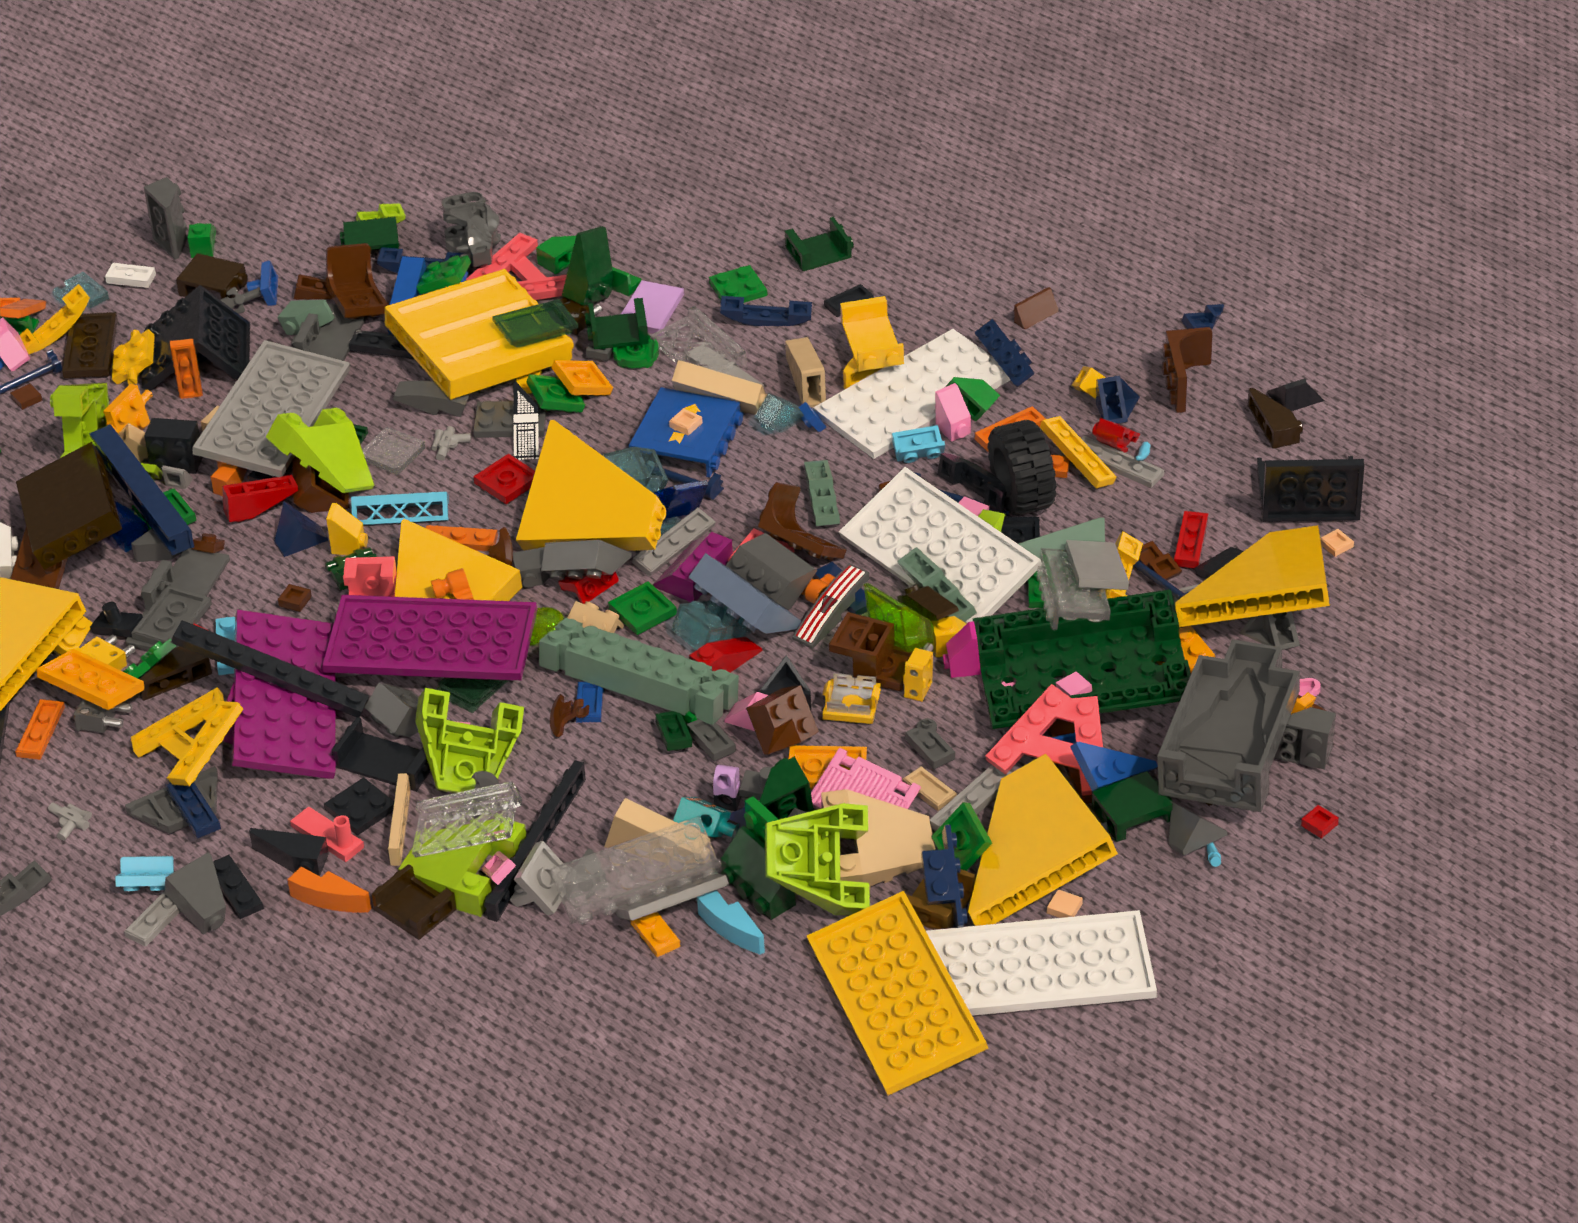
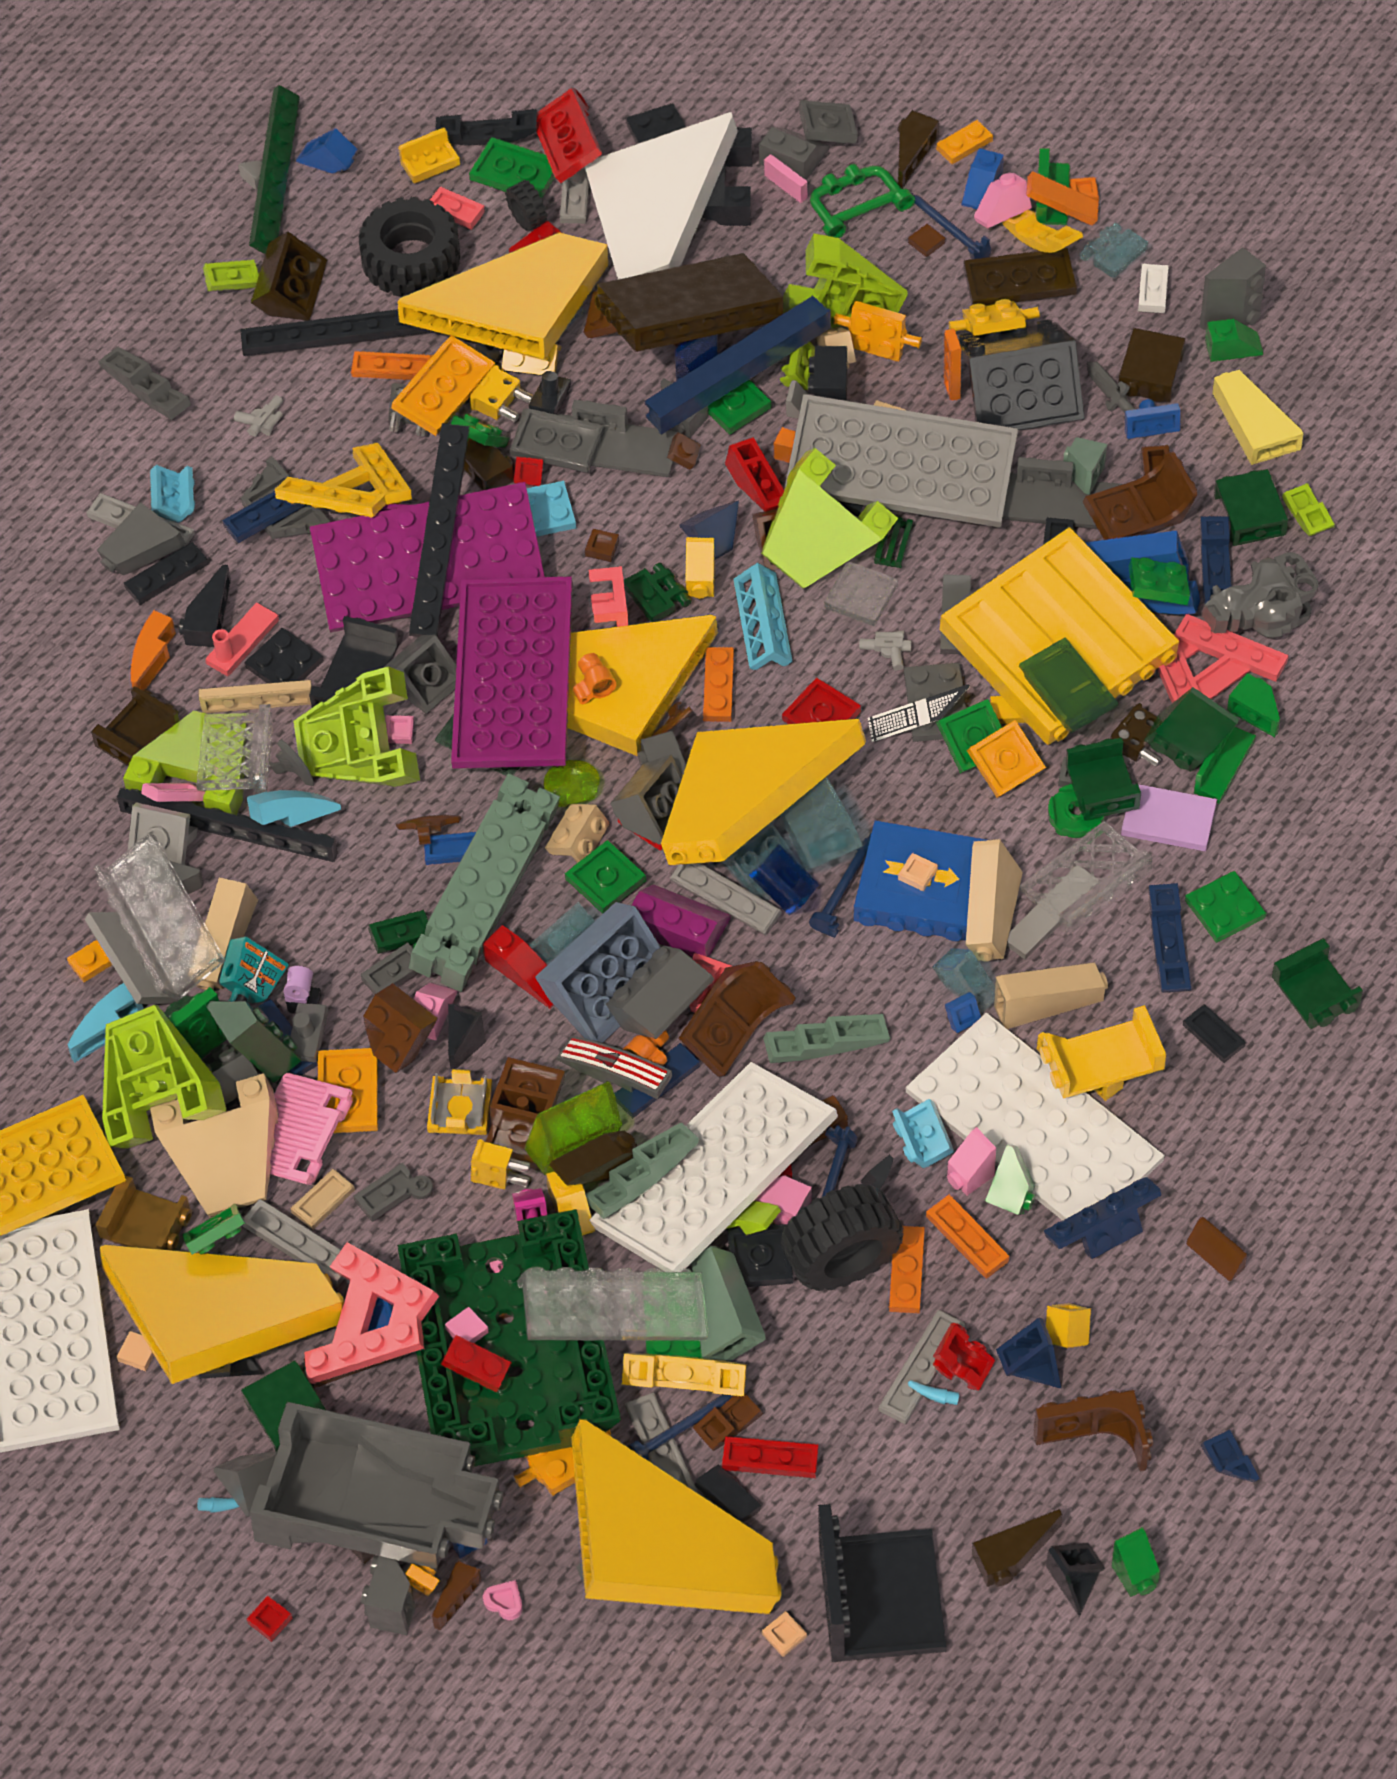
camera: 85 degrees right, 15 degrees up
(282, 232) = (1255, 419): none -> light yellow slope
(536, 789) = (289, 806): none -> medium azure slope
(941, 878) = (143, 1210): dark blue bracket -> none
(1077, 452) = (918, 1313): yellow plate -> none
(1097, 565) = (655, 1330): light grey tile -> none
(1108, 766) = (324, 1368): blue wing -> none
(1111, 674) = (476, 1363): none -> red plate
(1291, 359) = (1135, 1563): none -> green slope

